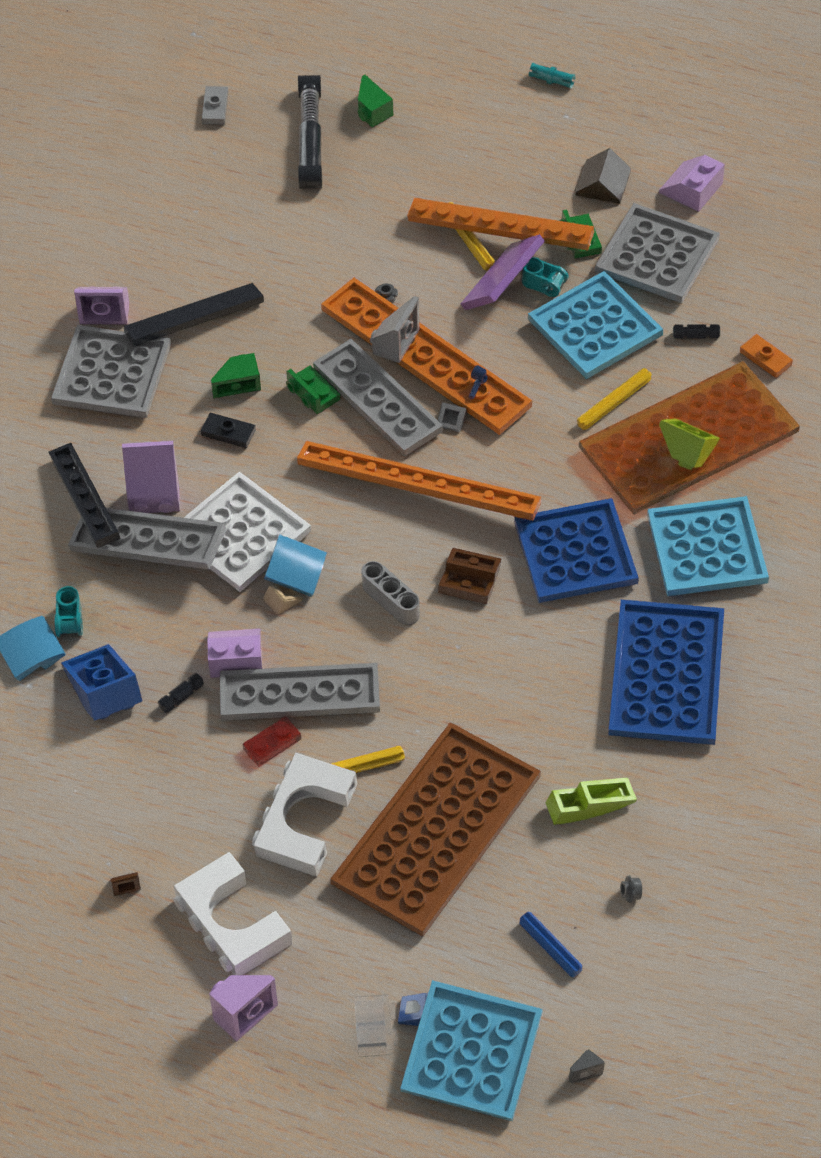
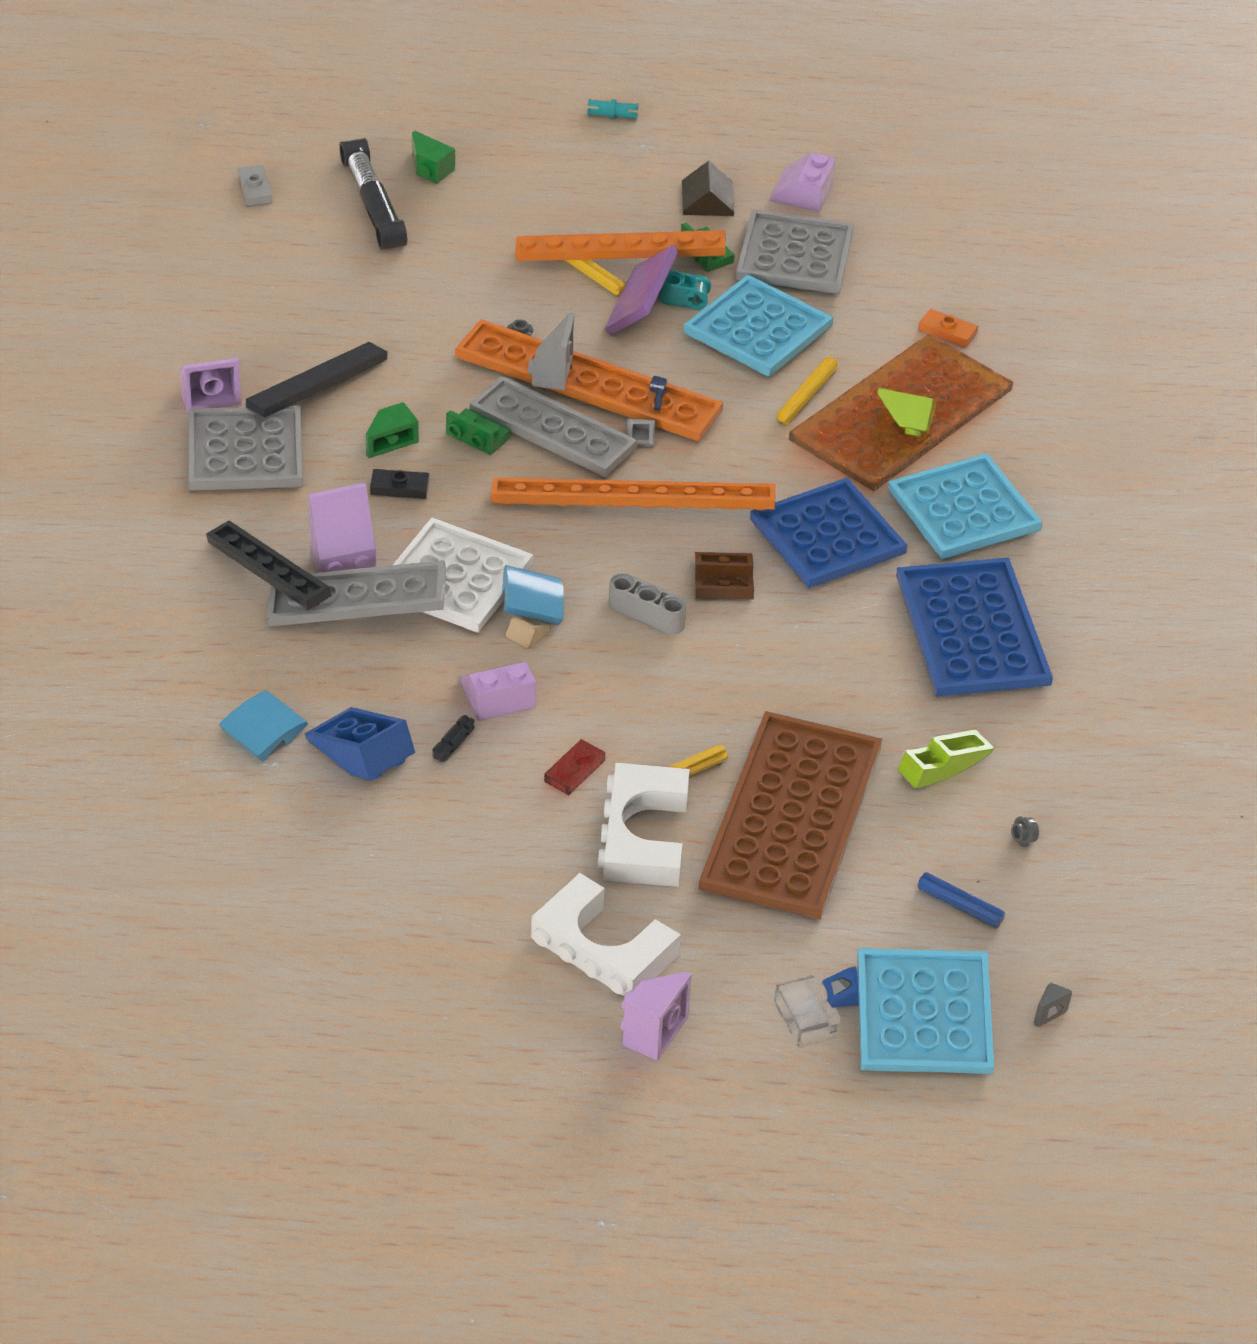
camera: 20 degrees left, 10 degrees down
(68, 616) = (295, 681): teal piece -> none
(125, 883) = (469, 930): reddish brown slope -> none
(299, 691) = (586, 713): light grey plate -> none
(696, 331) = (866, 316): black axle -> none

